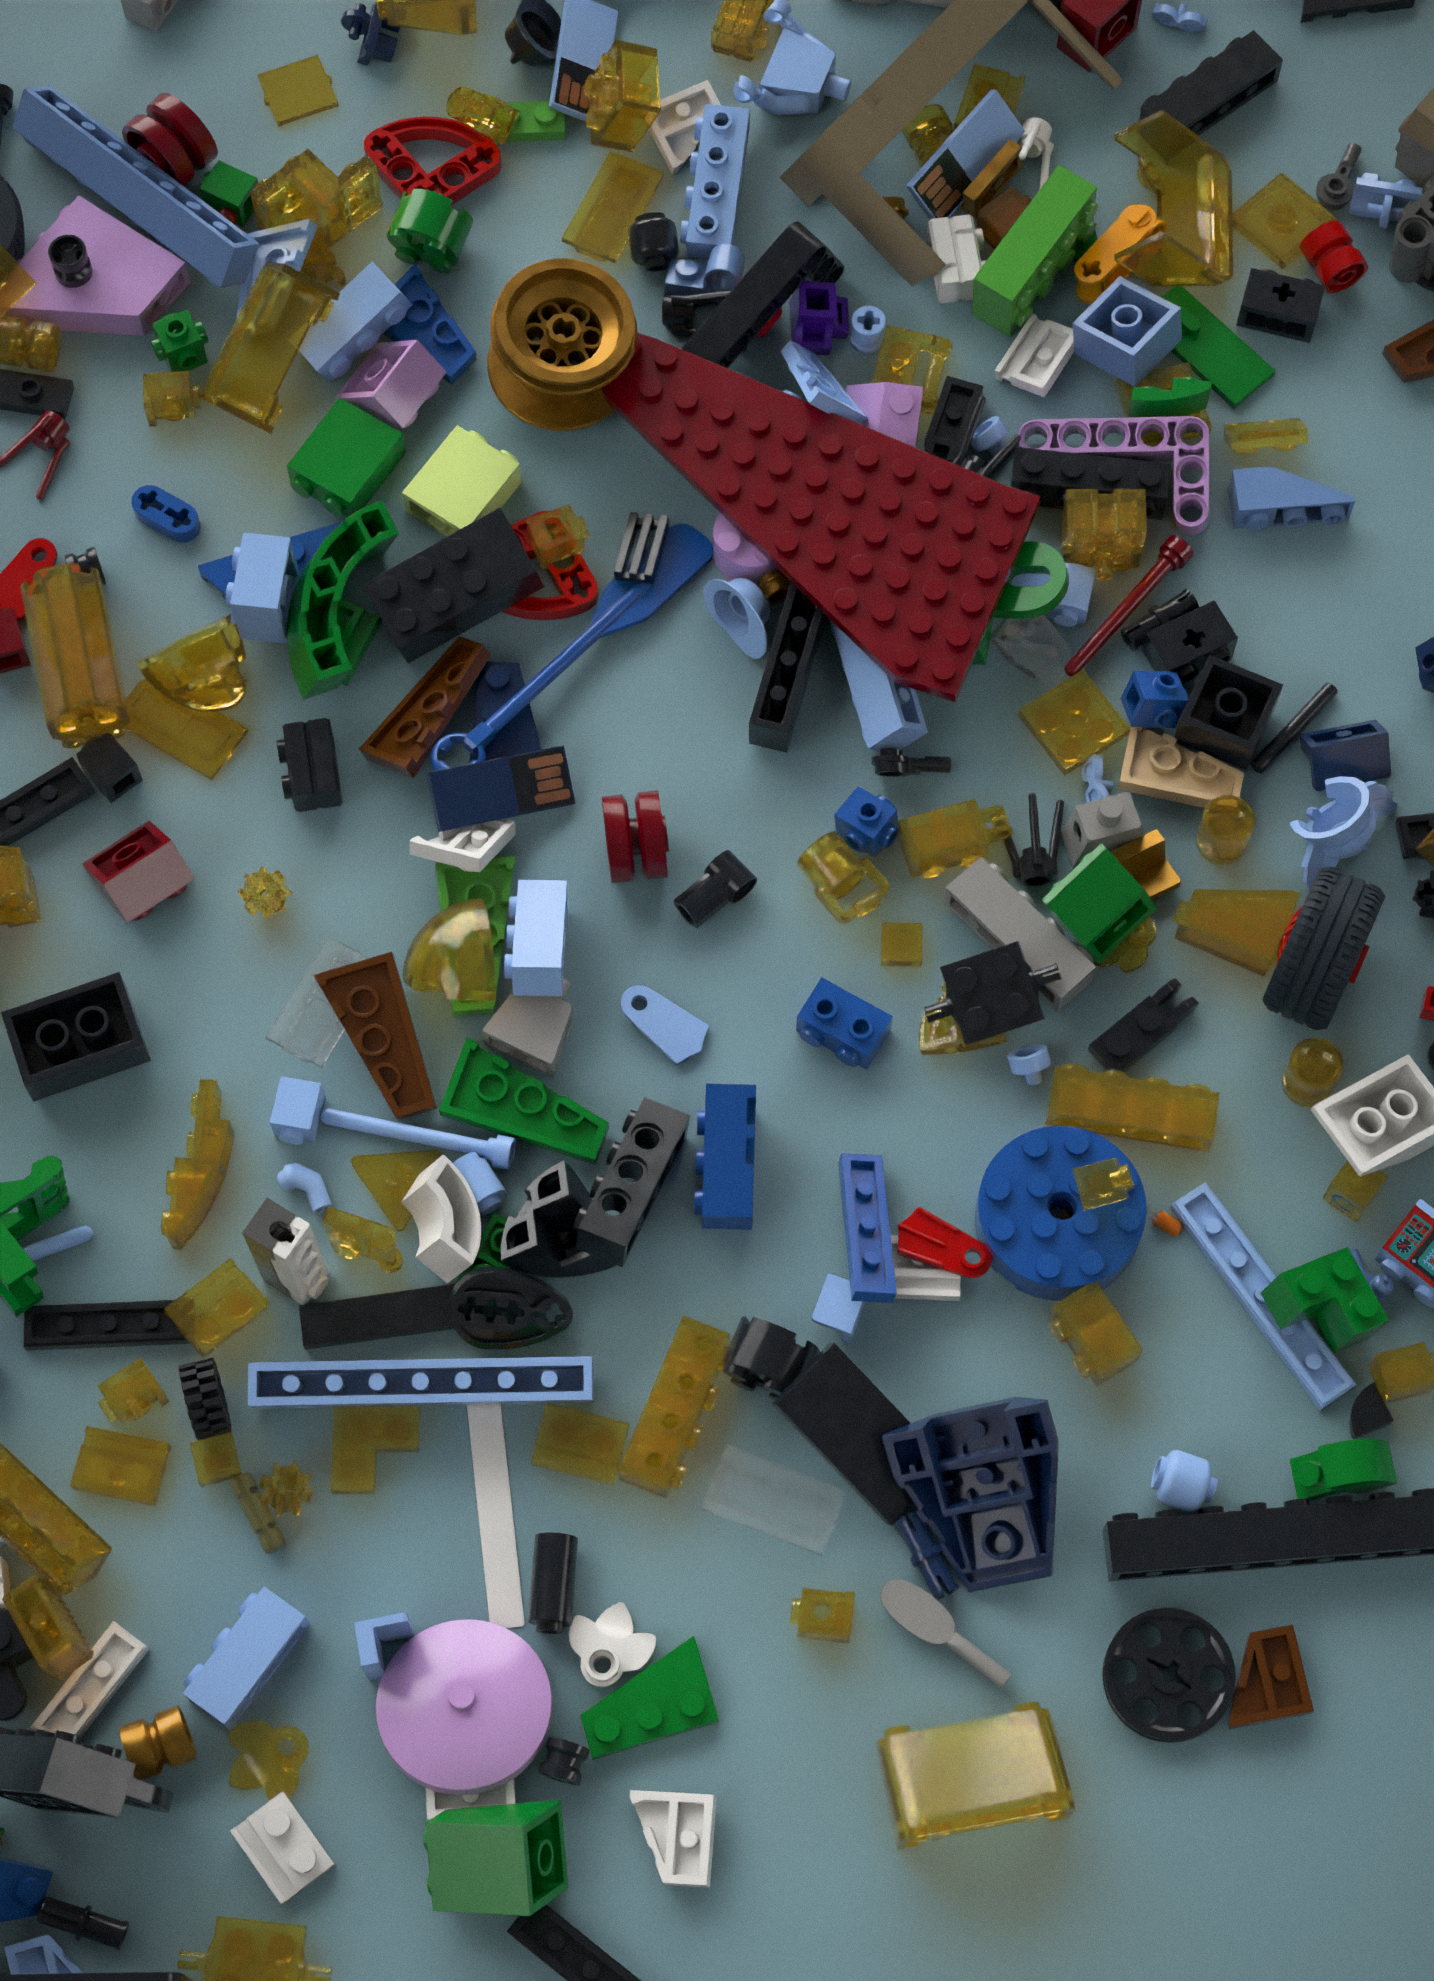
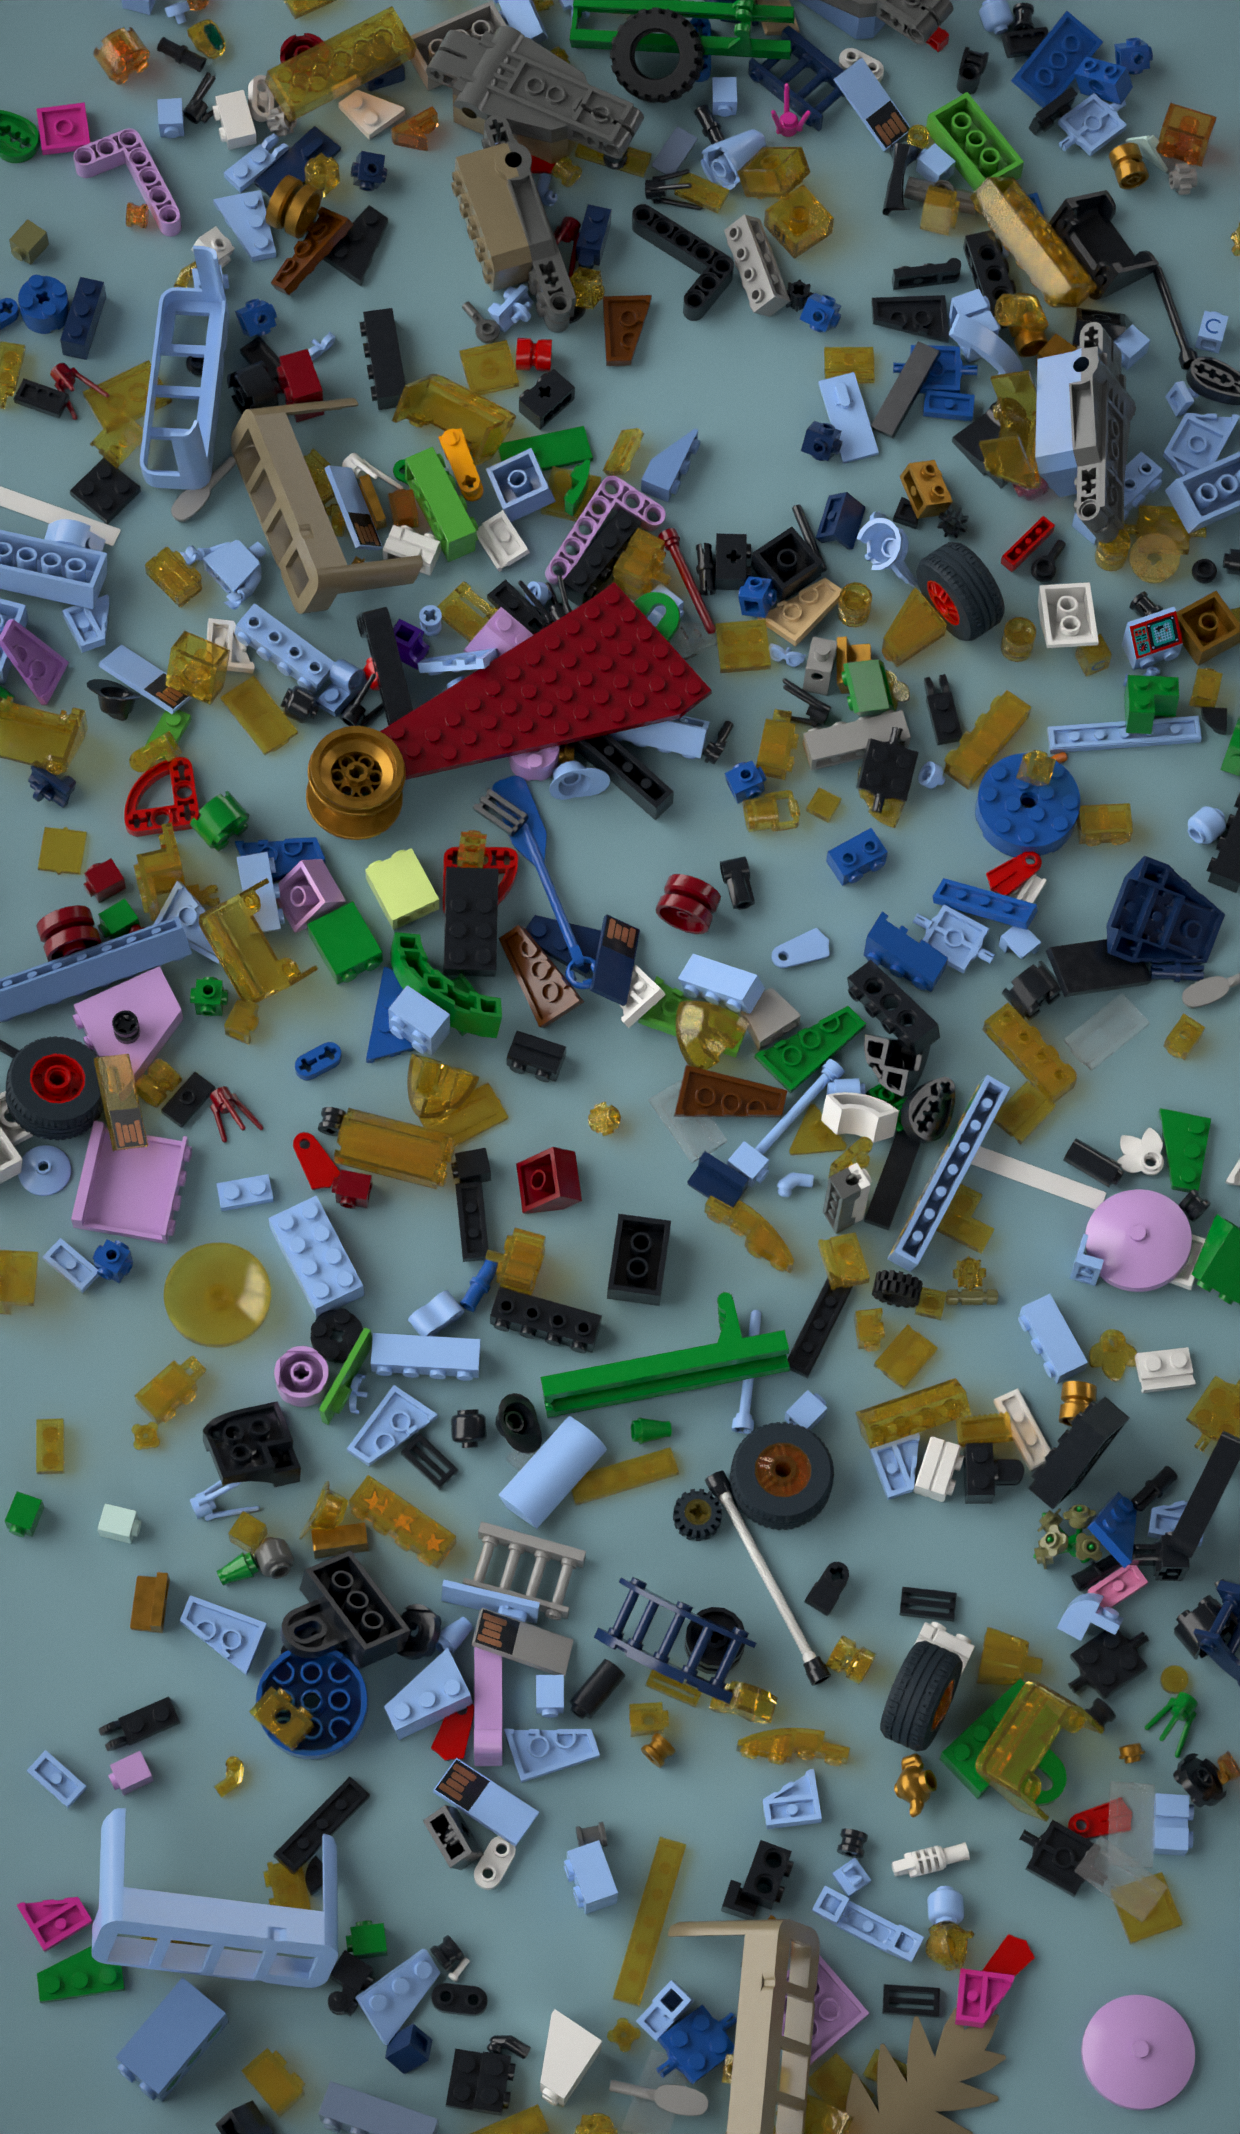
camera: 65 degrees left, 0 degrees up
(253, 1085) = (718, 1180): none -> dark blue panel
(273, 146) = (104, 880): none -> dark red brick
(795, 1215) = (955, 937): none -> light blue plate

